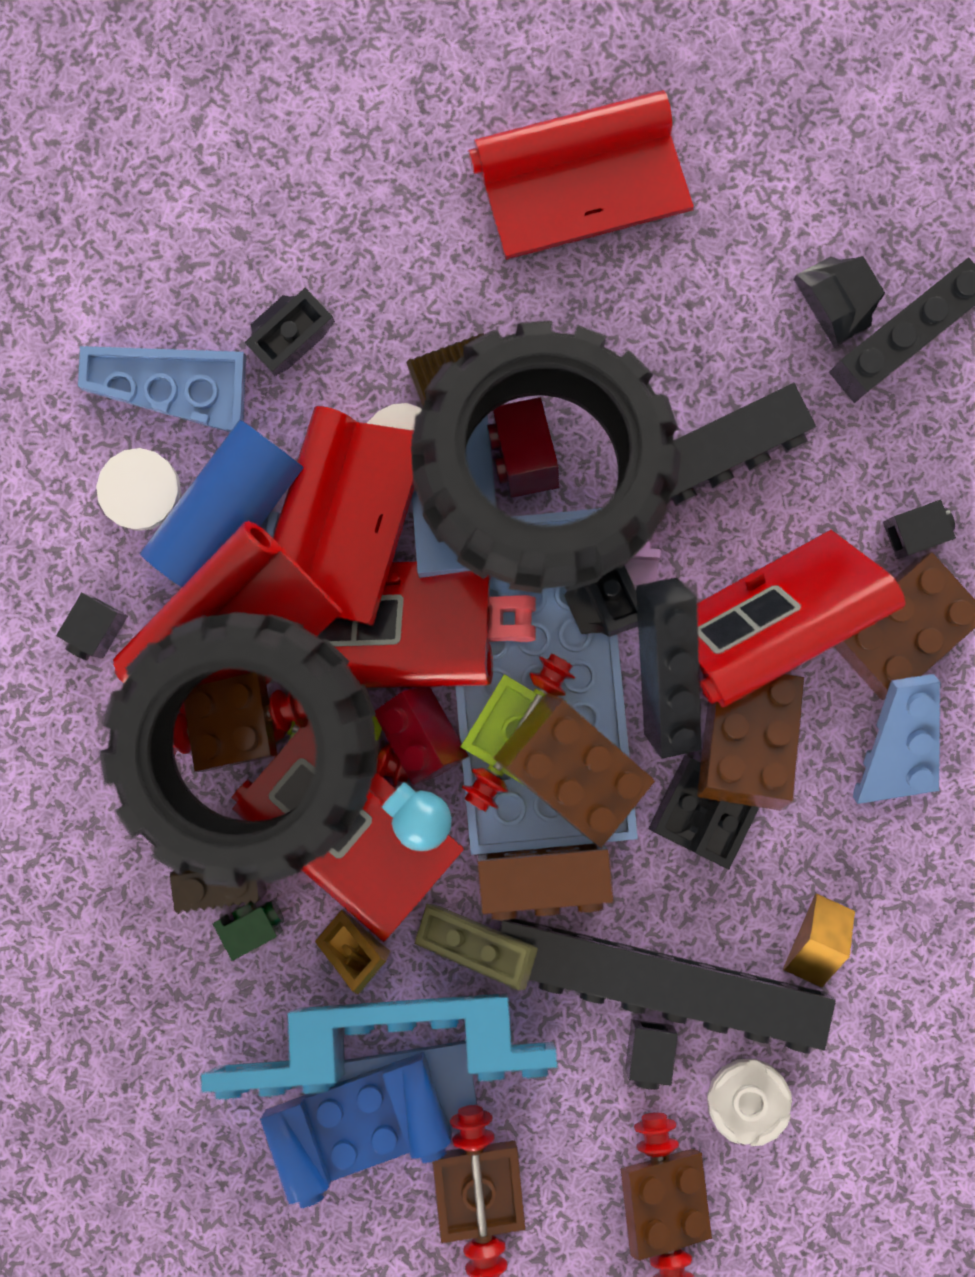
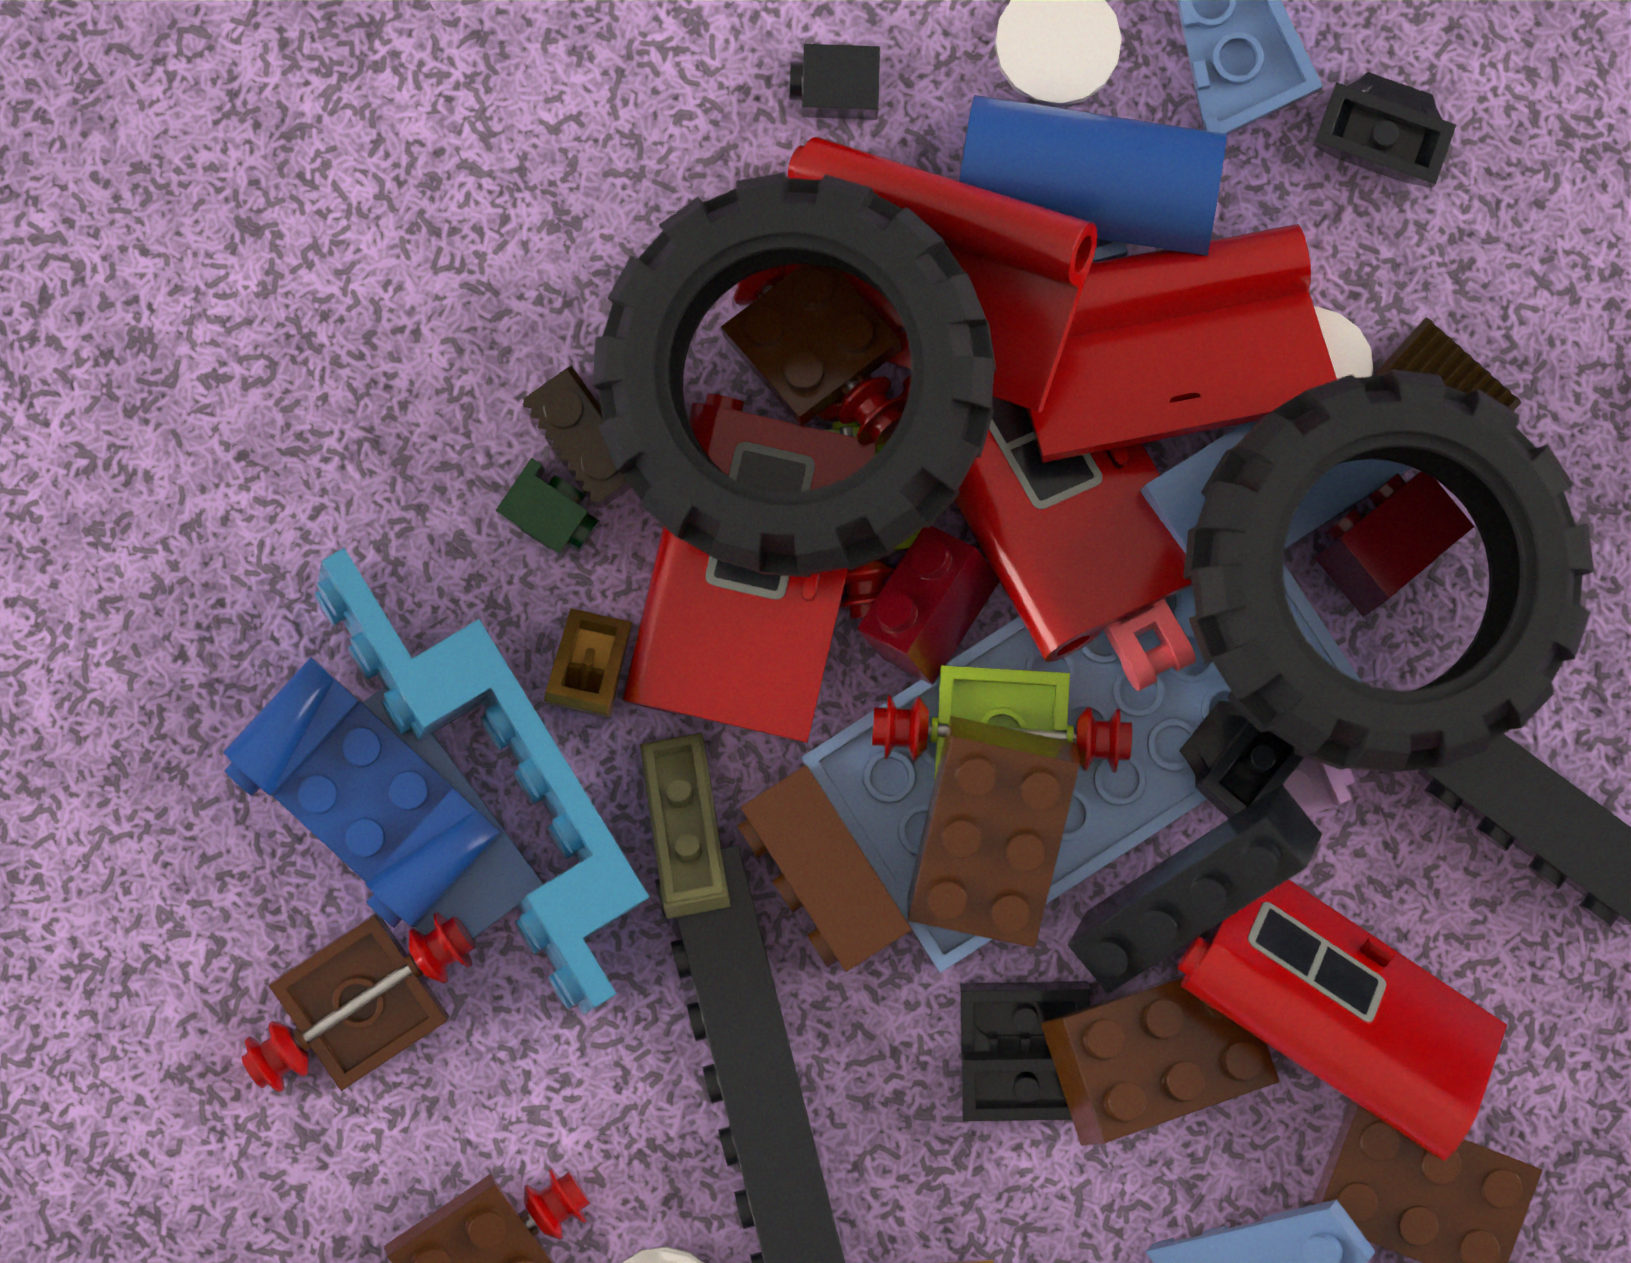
camera: 55 degrees right, 0 degrees up
(418, 818) = (819, 659): medium azure piece -> none
(651, 1054) = (659, 1140): black brick -> none
(920, 529) = (1570, 1145): black brick -> none

